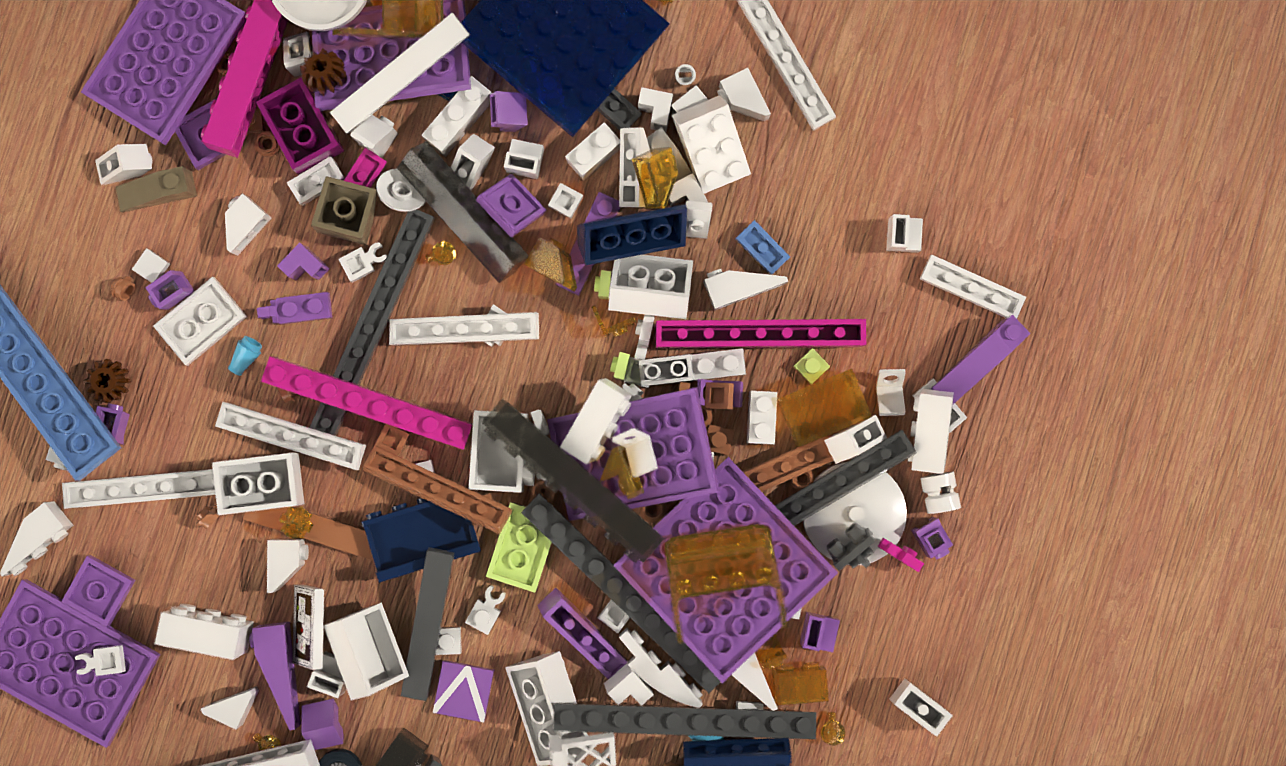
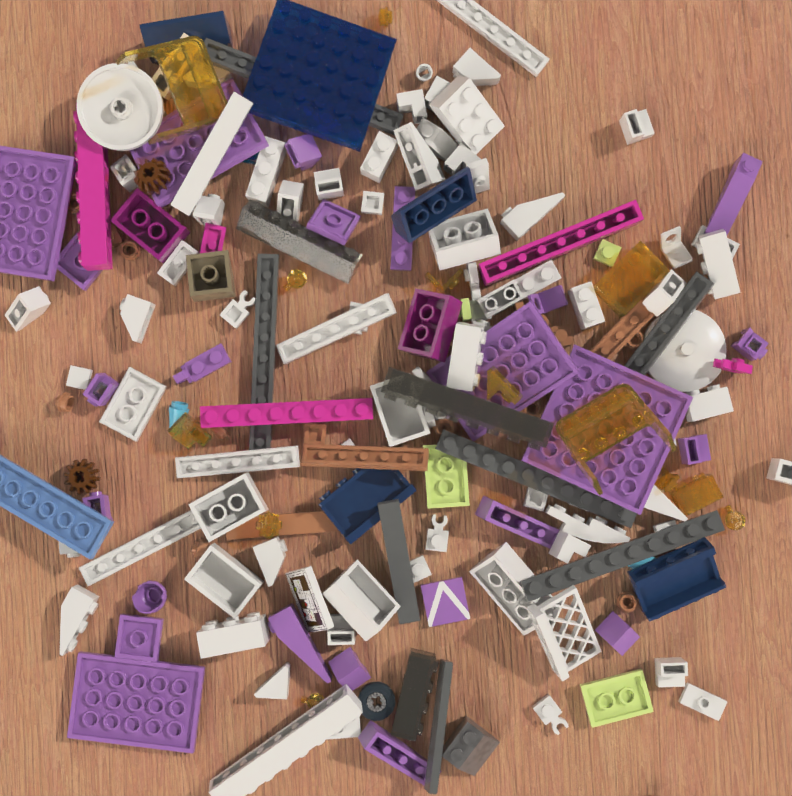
camera: 20 degrees left, 0 degrees up
(105, 660) = (166, 687): white plate -> none
(128, 549) = (149, 597): none -> medium lavender hair
(156, 189) = (60, 318): dark tan slope -> none
(220, 564) = (224, 580): none -> white piece
(246, 379) = (189, 431): none -> clear yellow piece
(302, 260) = (192, 326): medium lavender piece -> none
(393, 184) = (244, 246): white dish -> none
(552, 262) = (382, 252): clear yellow slope -> none
(572, 368) = (430, 325): none -> magenta brick
(602, 284) = (426, 254): yellowish green plate -> none
(638, 450) = (507, 366): white bracket -> none
(656, 176) = (435, 154): clear yellow slope -> none
(719, 395) = (548, 302): nougat plate -> none
(762, 247) = (534, 179): medium blue plate -> none
(855, 551) = (698, 376): dark grey hips -> none
(856, 586) = (709, 403): none -> white brick
(936, 501) = (743, 308): white wheel -> none
(972, 287) = (703, 146): white plate -> none

